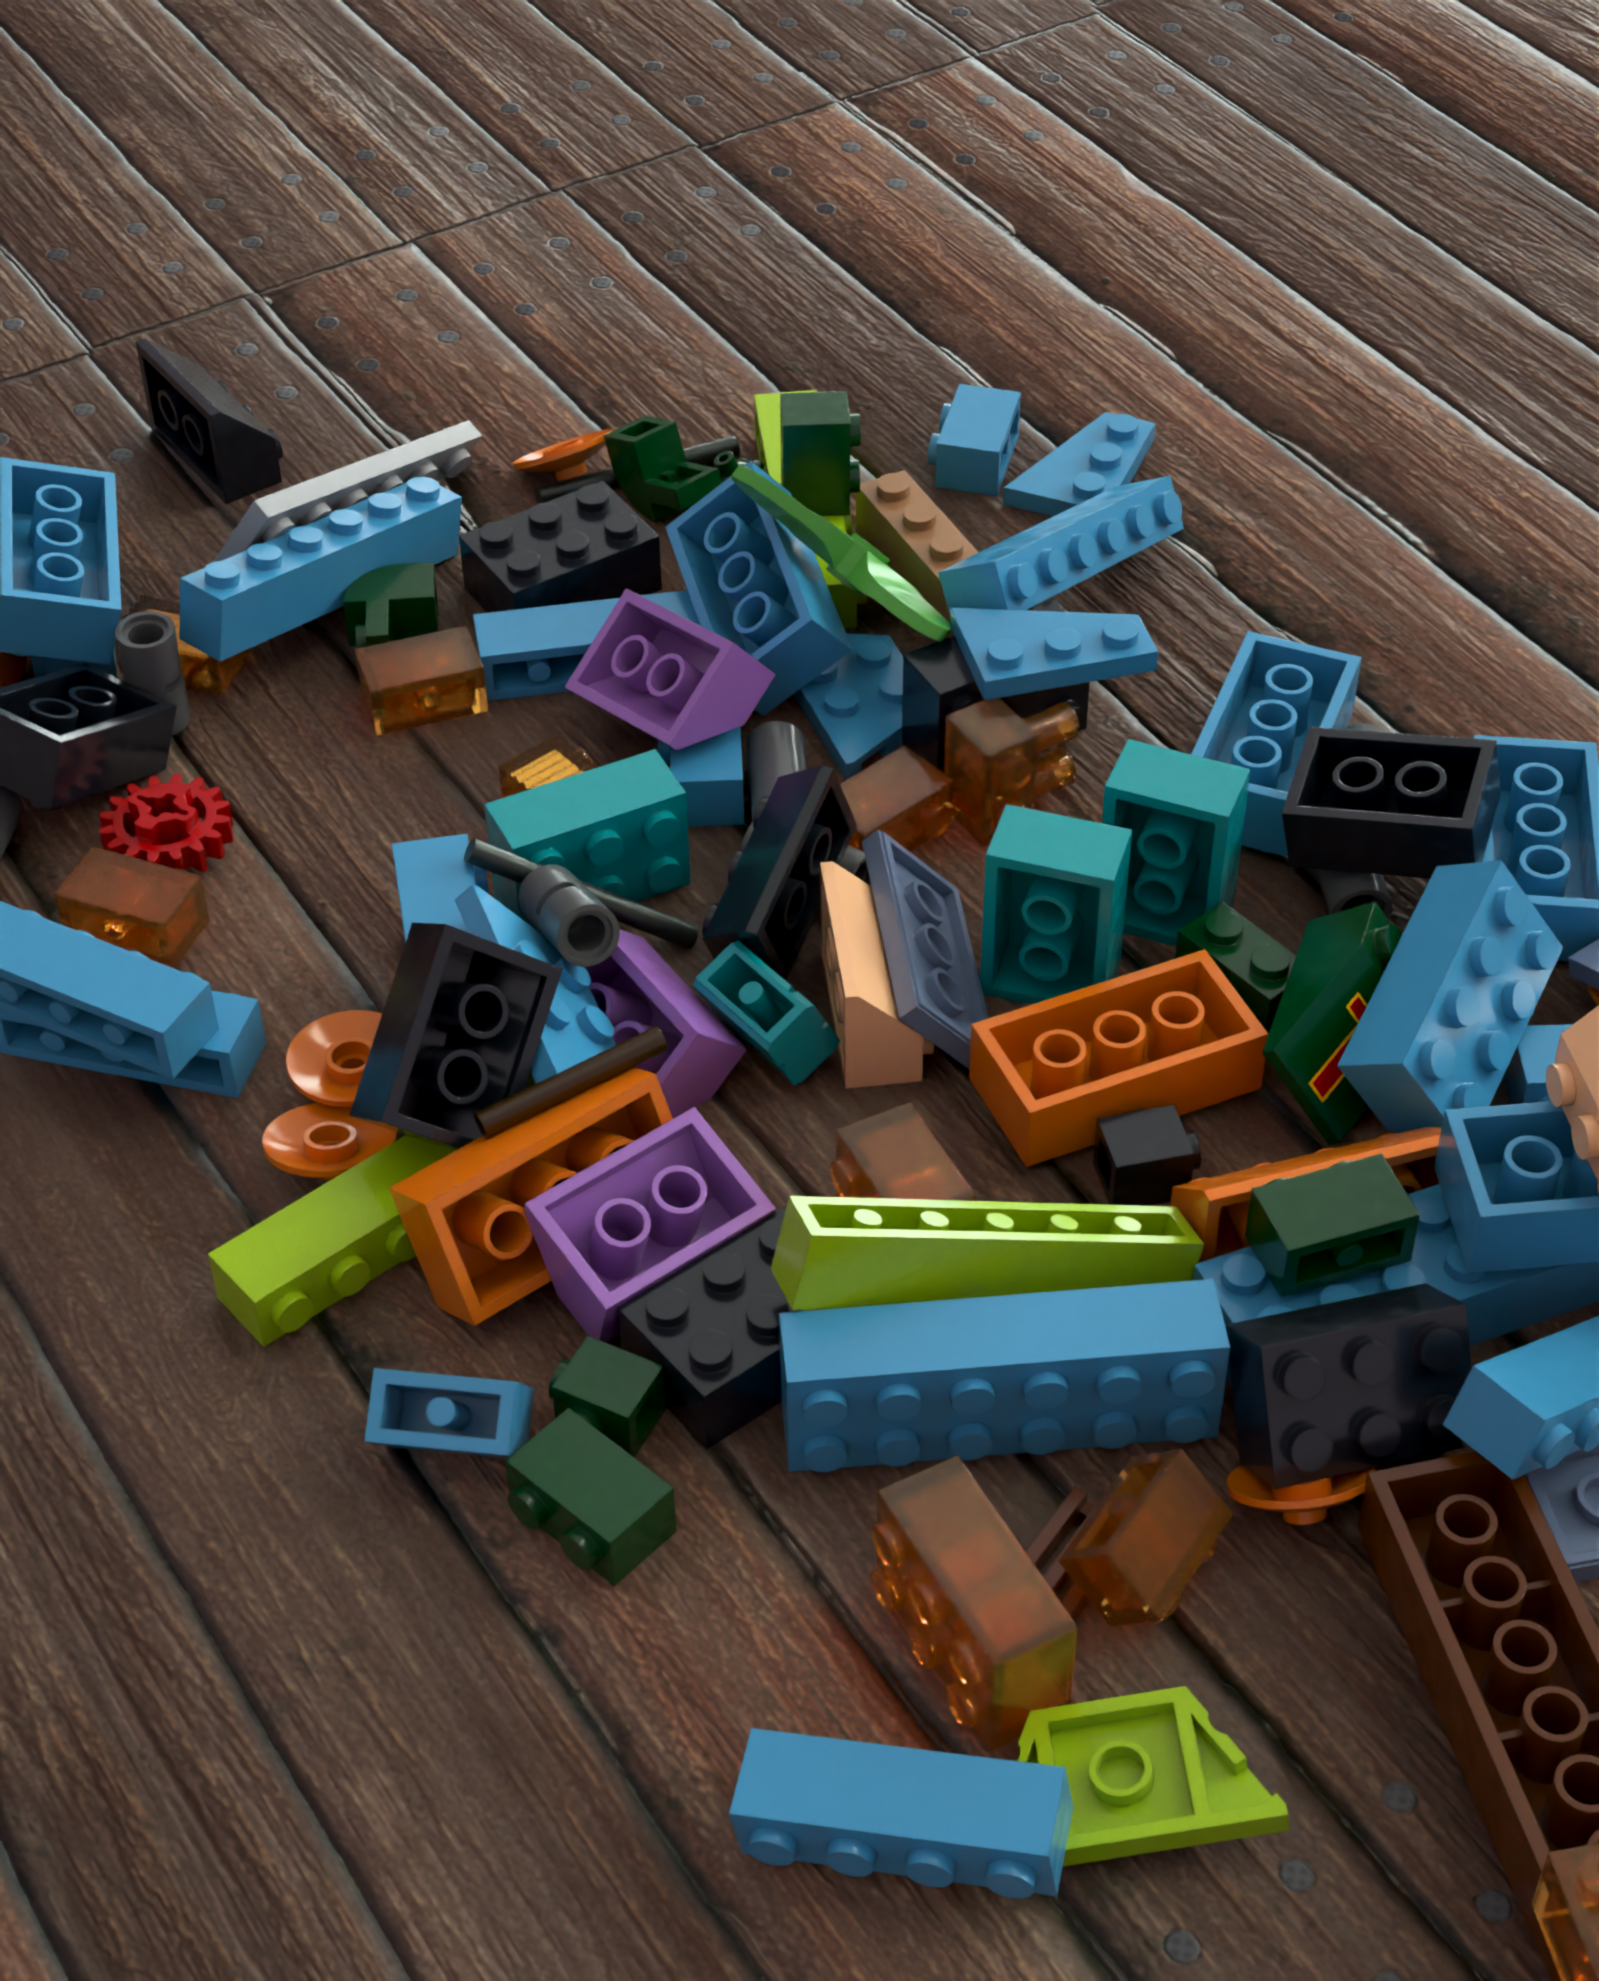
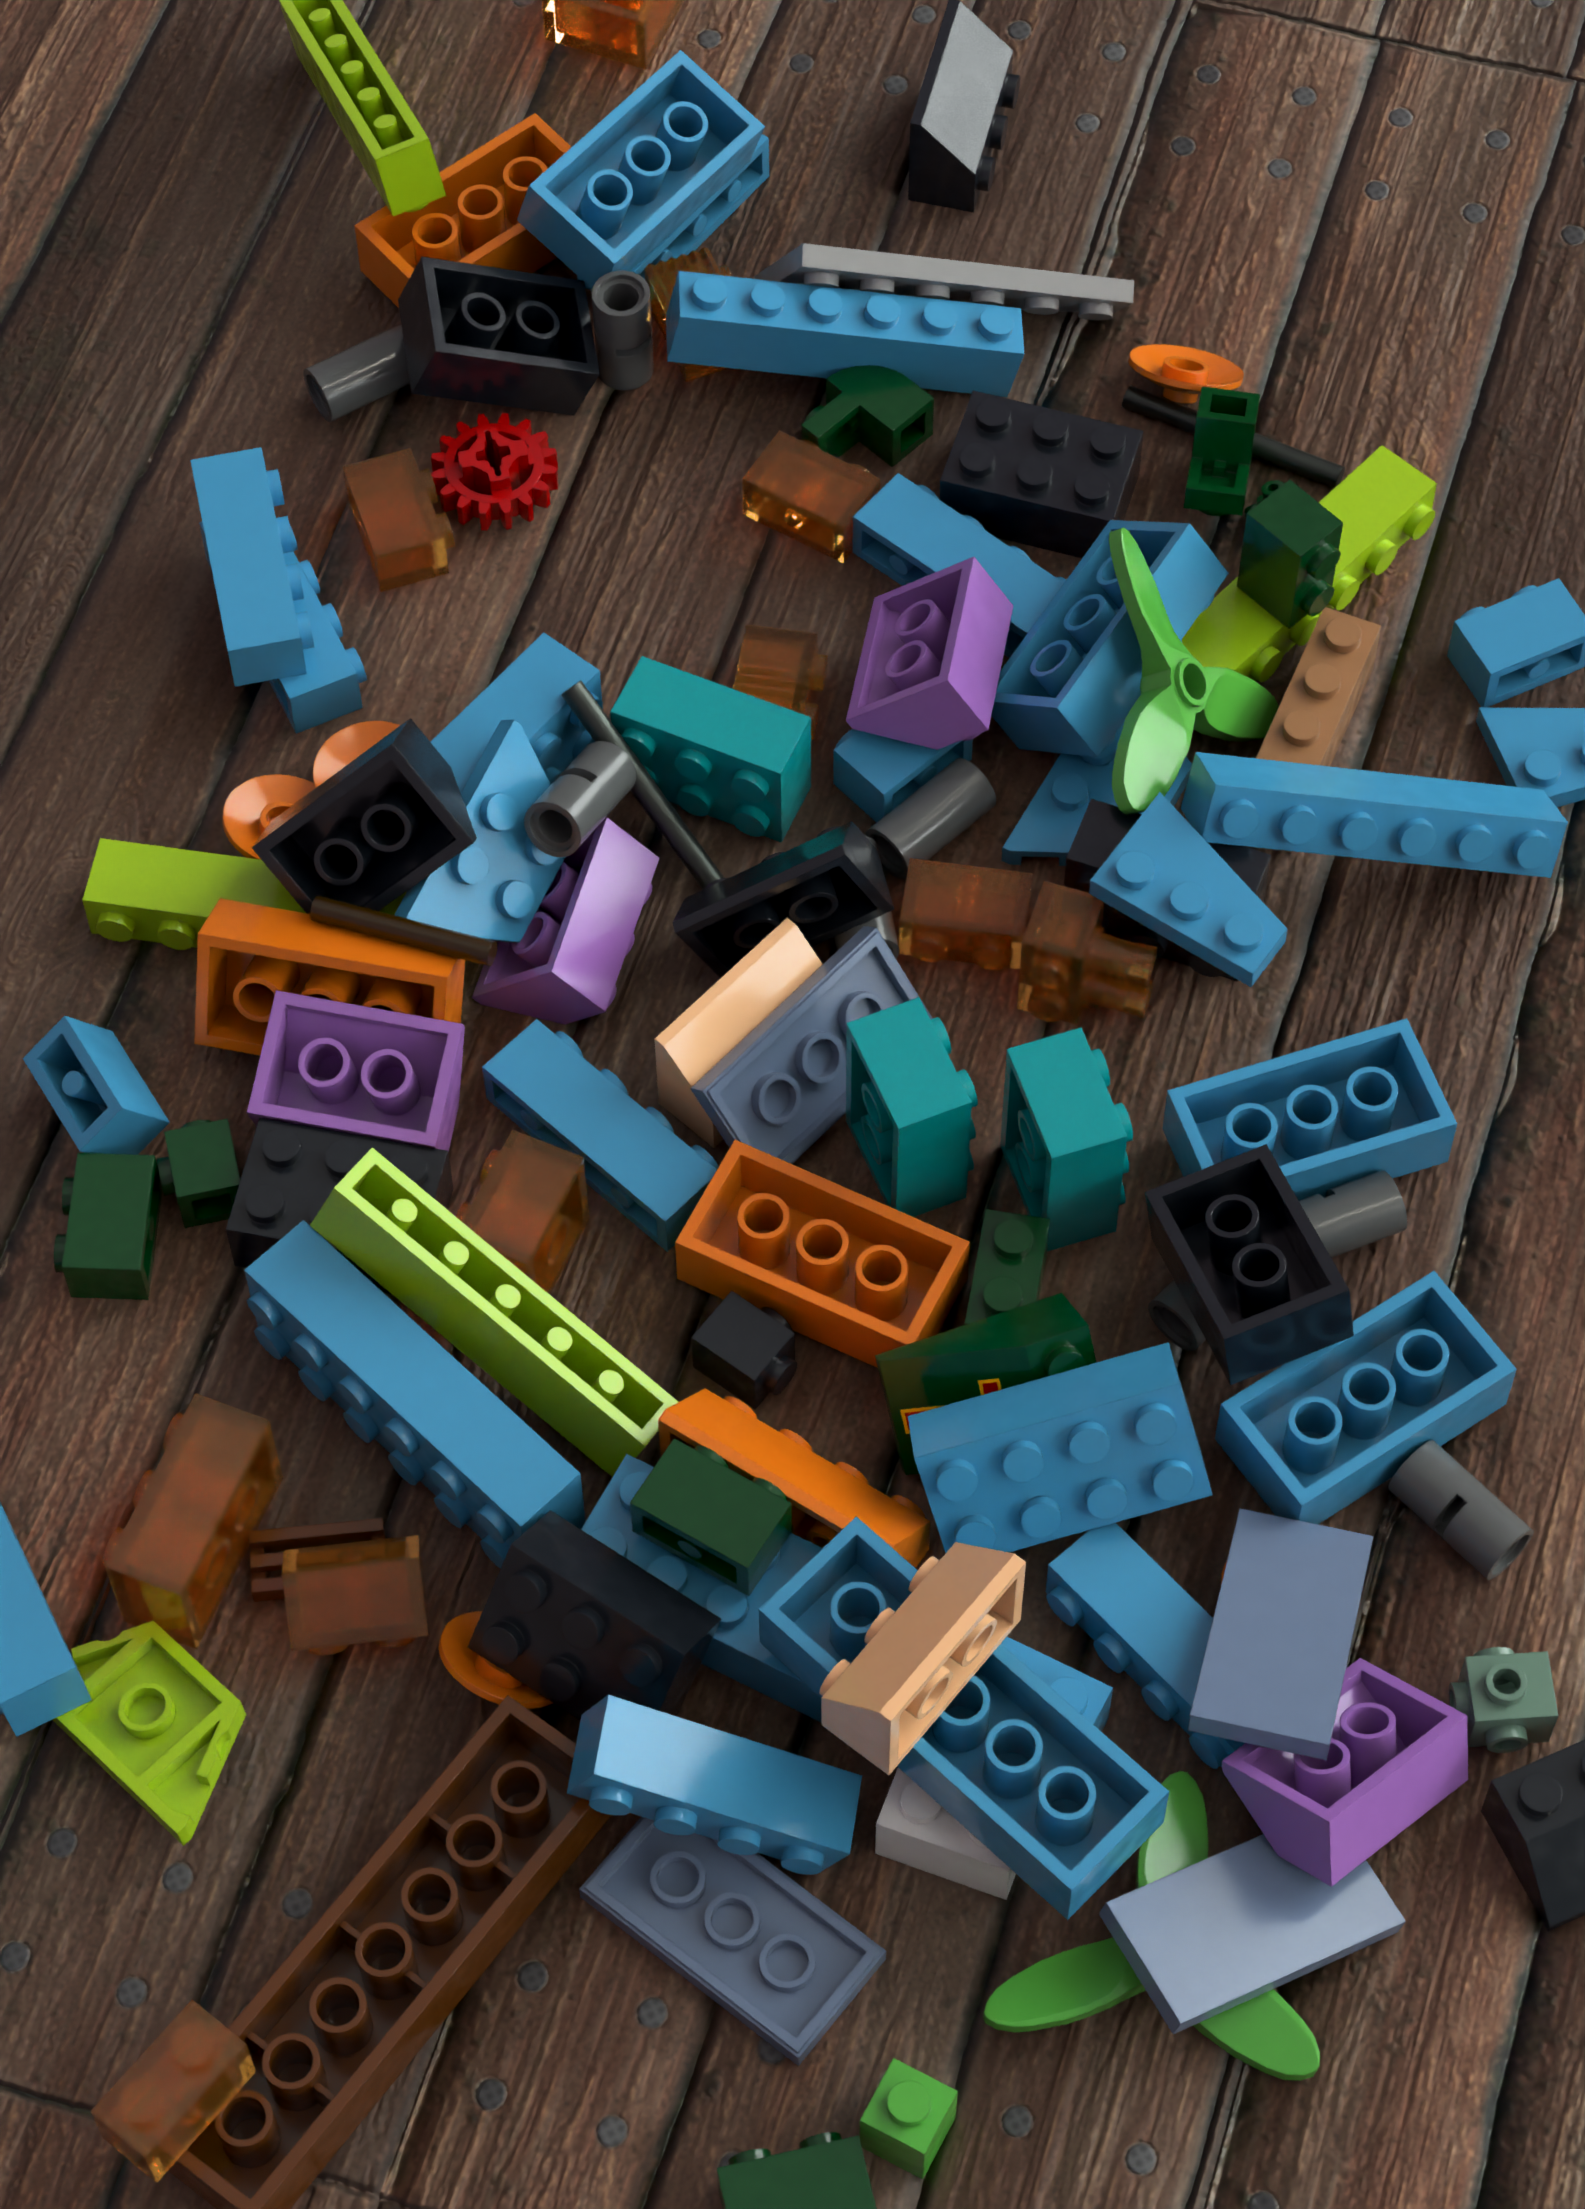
camera: 50 degrees right, 15 degrees up
(766, 1012) = (647, 991): teal brick -> none
(790, 1124) = (625, 1148): none -> dark azure brick

